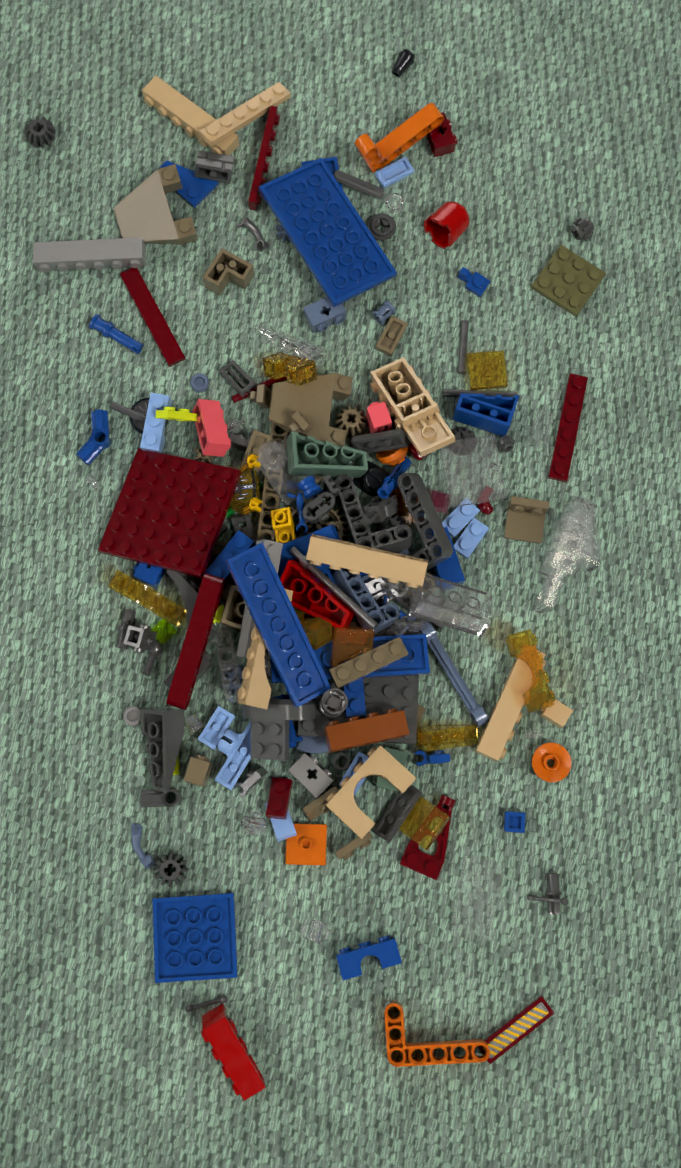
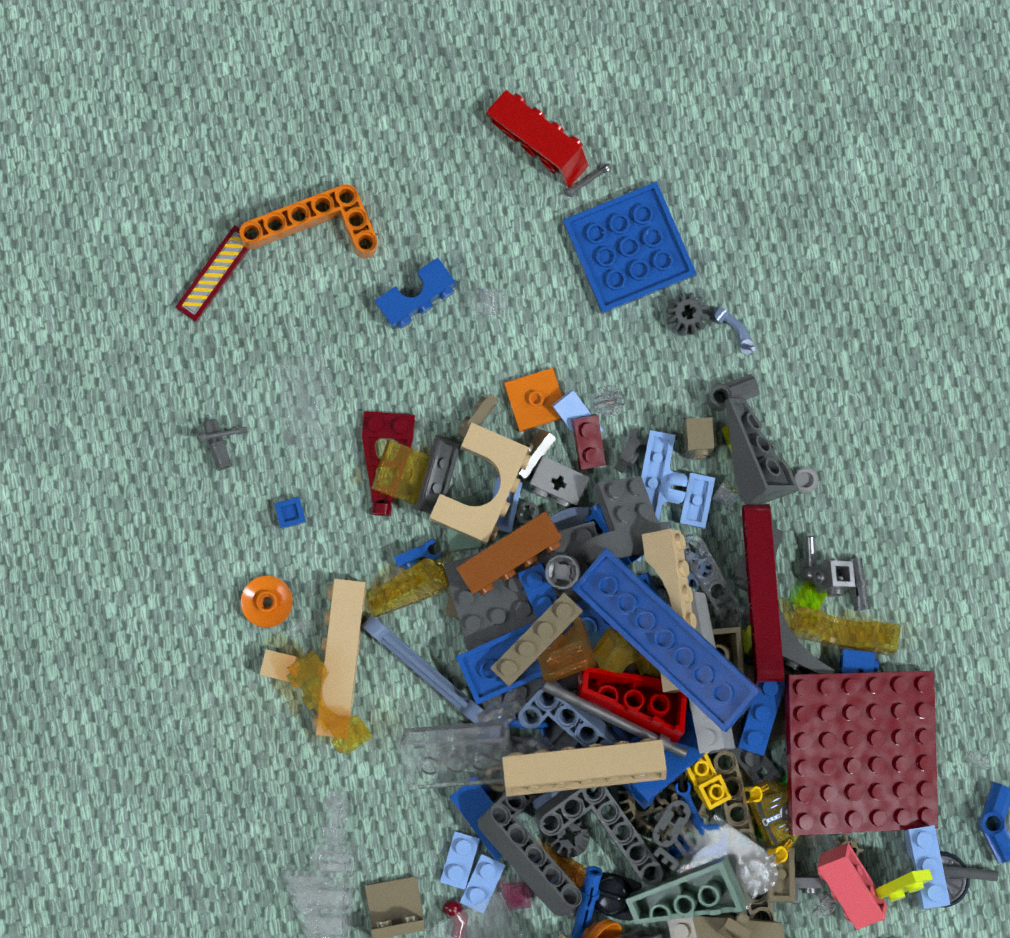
camera: 165 degrees right, 5 degrees up
(309, 487) = (693, 845): blue wheel -> none
(379, 509) = (591, 849): dark grey piece -> none

